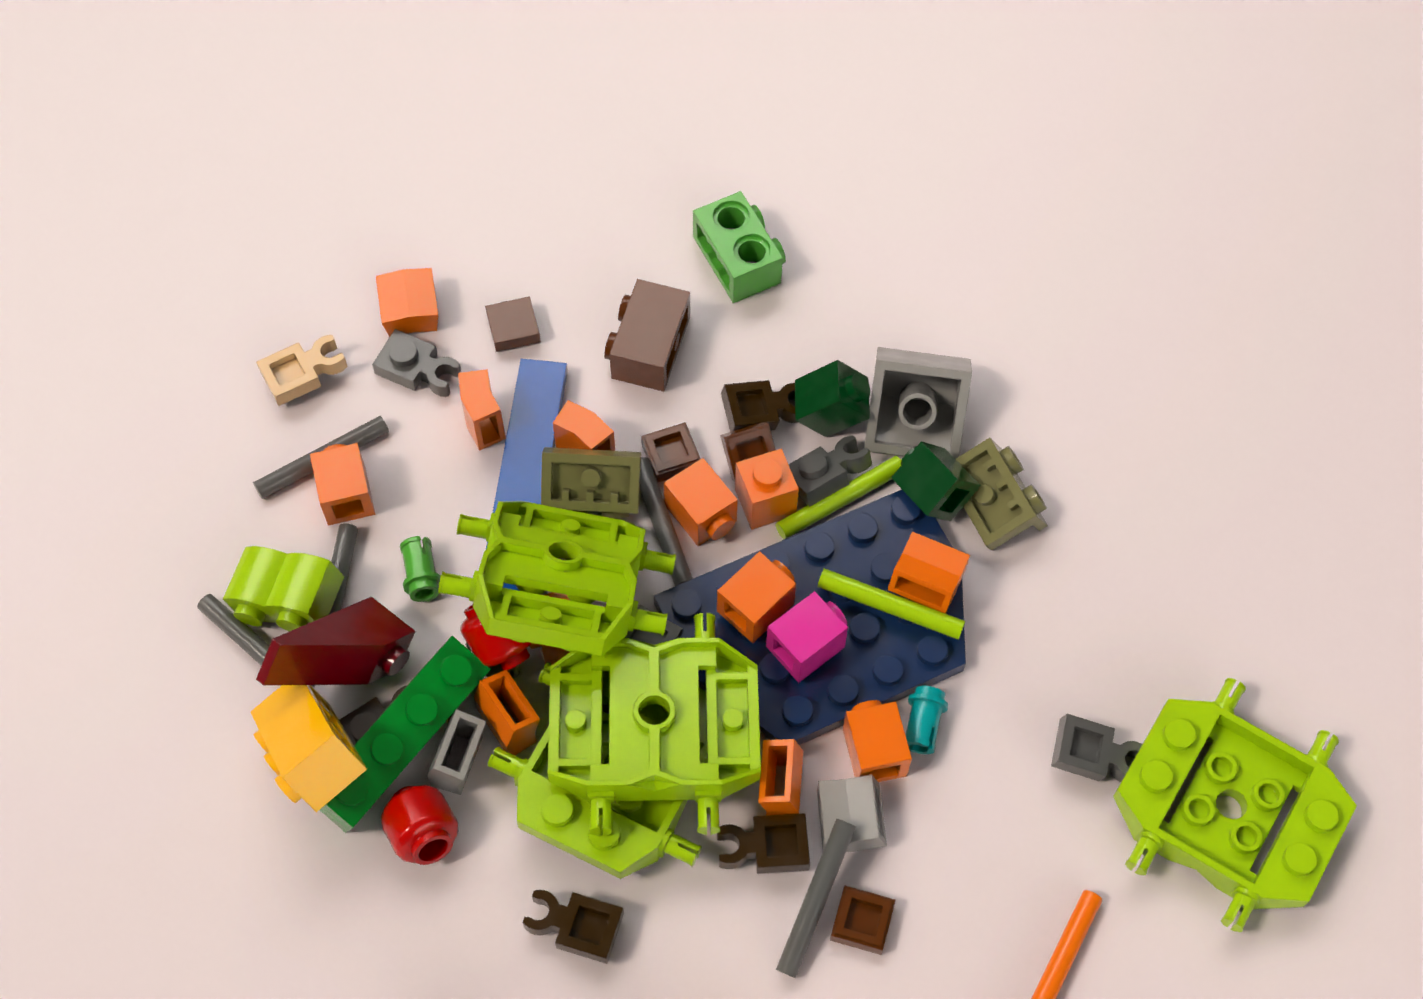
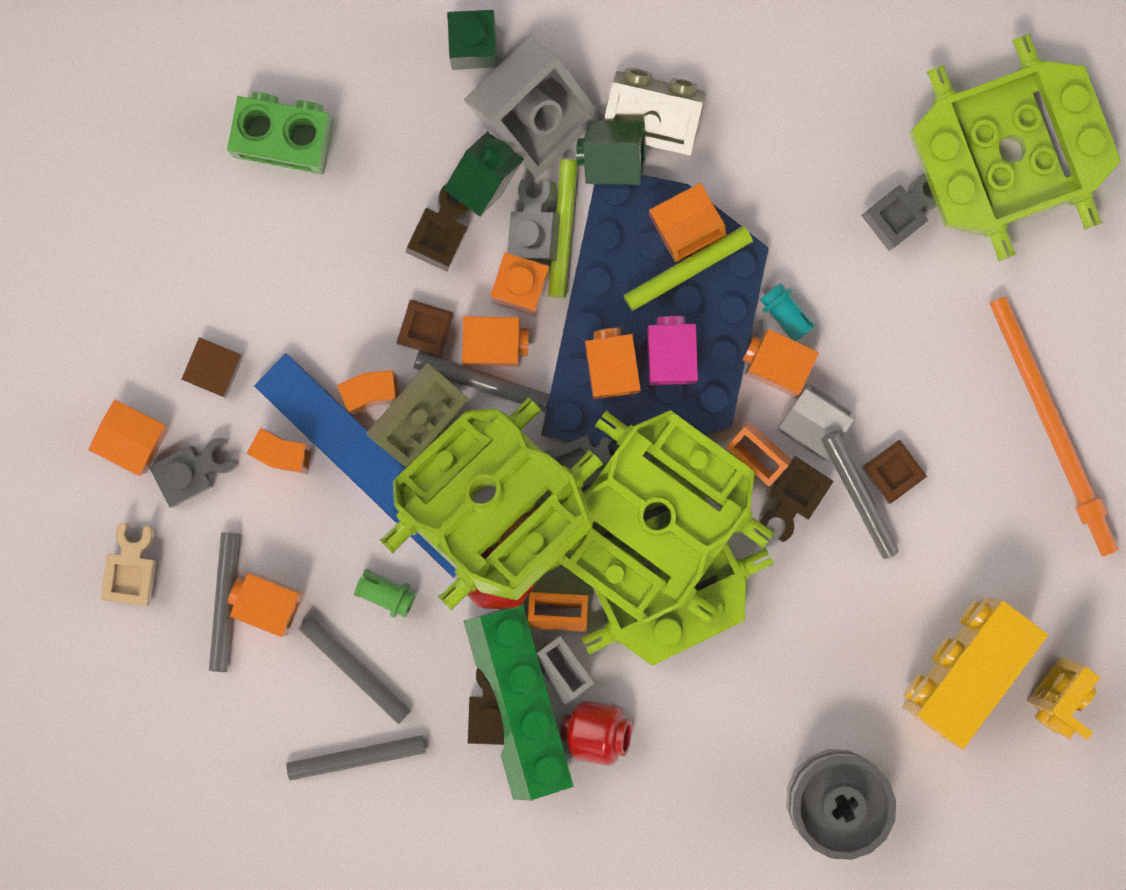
camera: 50 degrees left, 25 degrees up
(282, 588) = (331, 709): lime brick -> none
(306, 745) = (486, 779): yellow brick -> none
(340, 649) = (426, 700): dark red slope -> none
(583, 928) = (756, 668): dark brown plate -> none
(648, 334) = (310, 269): brick -> none
(747, 444) = (475, 269): reddish brown tile -> none
(930, 321) = (472, 39): none -> dark green brick

